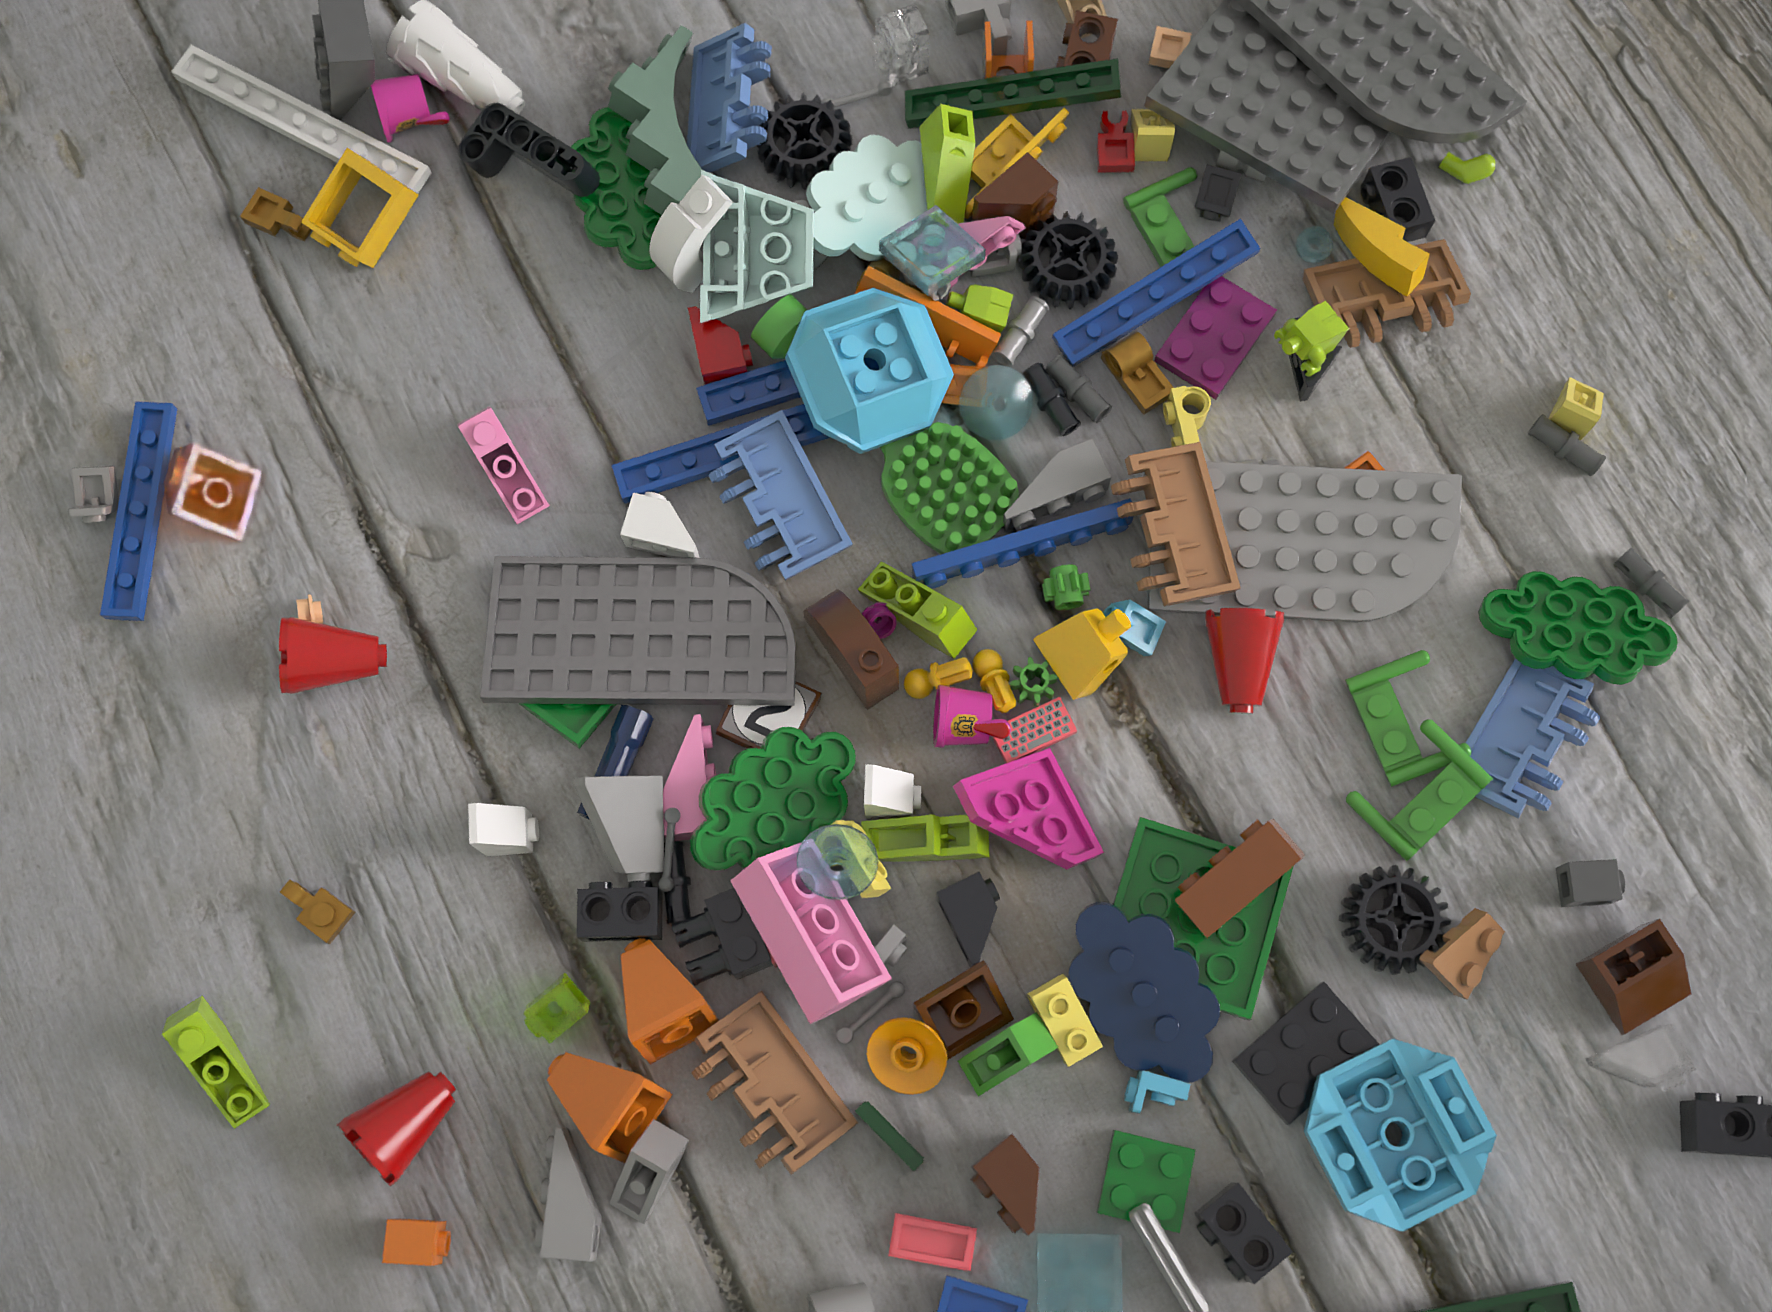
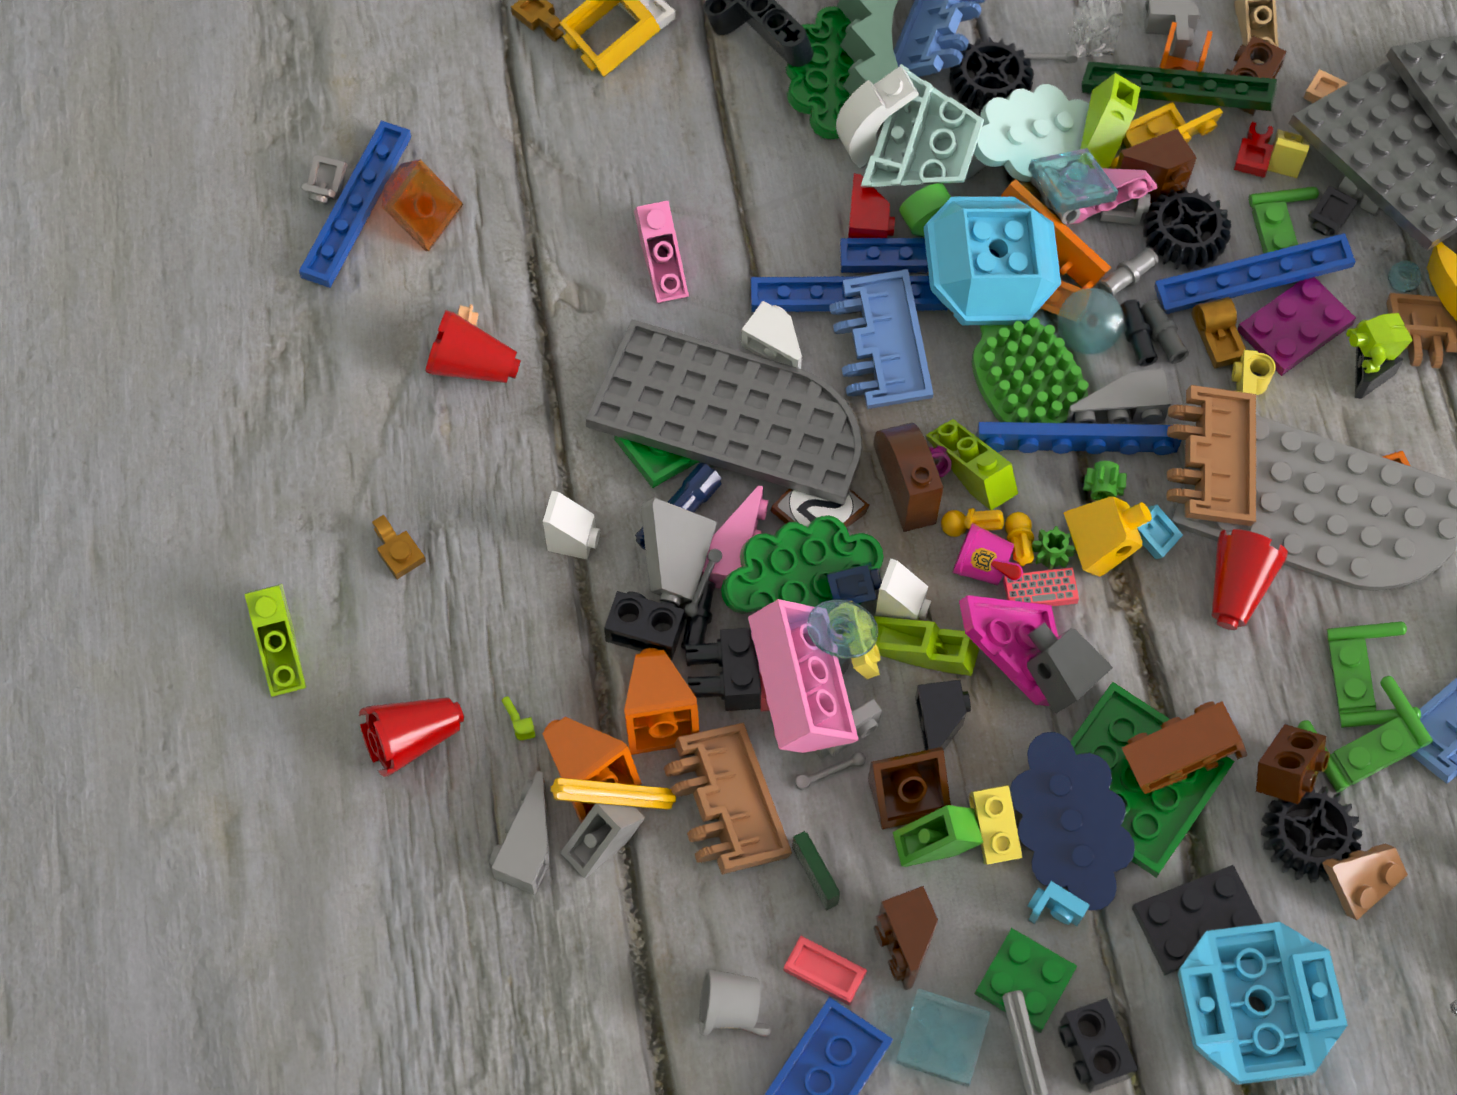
camera: 15 degrees right, 10 degrees down
(416, 1242) = (391, 828): orange brick -> none
(522, 1075) = (523, 727): none -> lime hand
(549, 1024) = (581, 678): clear neon green brick -> none
(644, 1133) = (612, 793): none -> yellow axle
(834, 797) = (855, 583): none -> dark blue bracket
(897, 1067) = (836, 816): light orange dish -> none
(983, 304) = (1103, 240): lime piece -> none
(1087, 820) = (1065, 666): none -> dark grey torso
(1355, 854) = (1292, 764): none -> reddish brown brick

